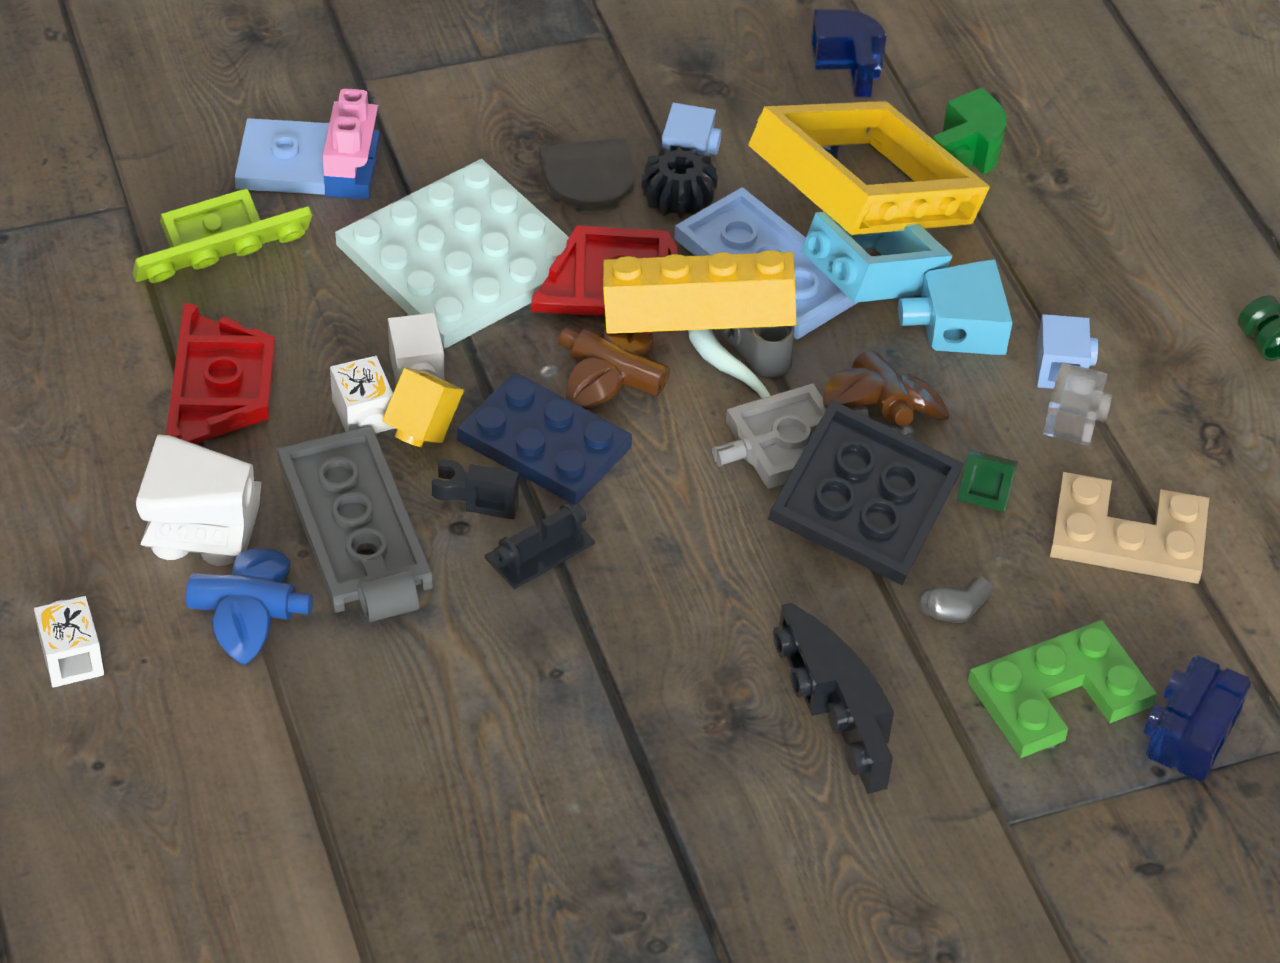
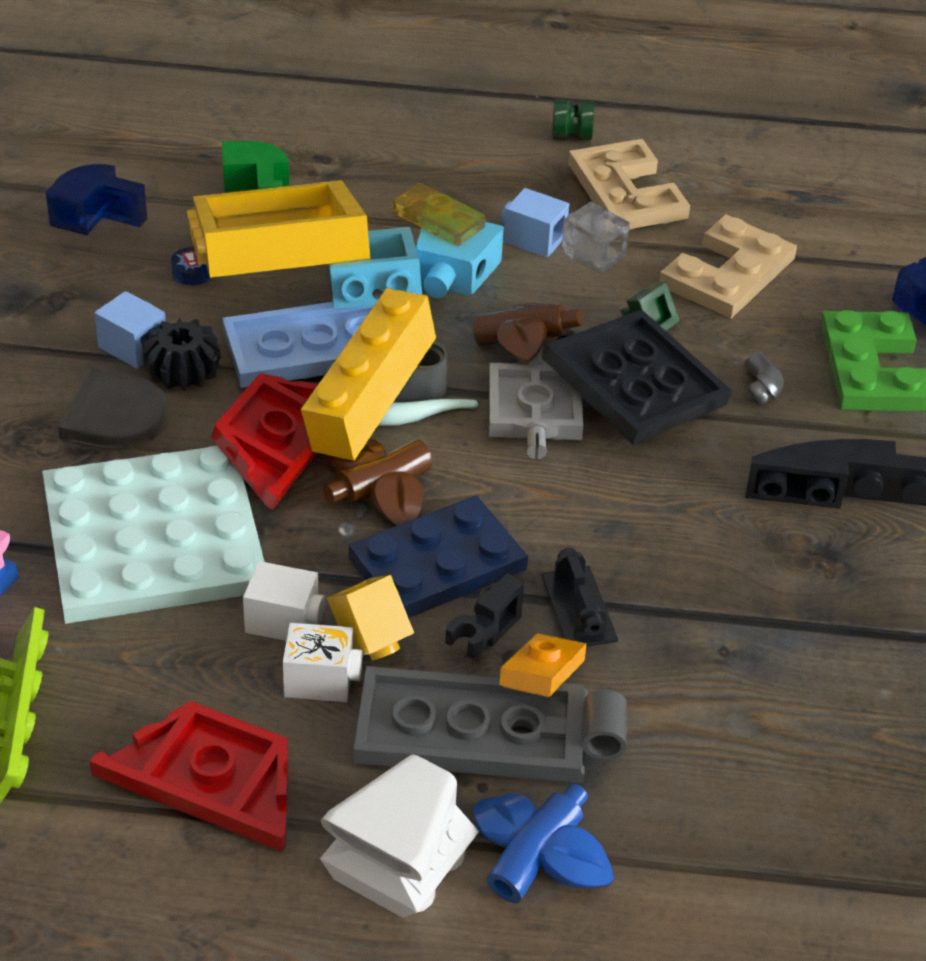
camera: 65 degrees left, 5 degrees down
(437, 536) = (542, 665): none -> light orange plate
(981, 266) = (438, 214): none -> clear yellow plate
(1163, 407) = (606, 178): none -> tan plate

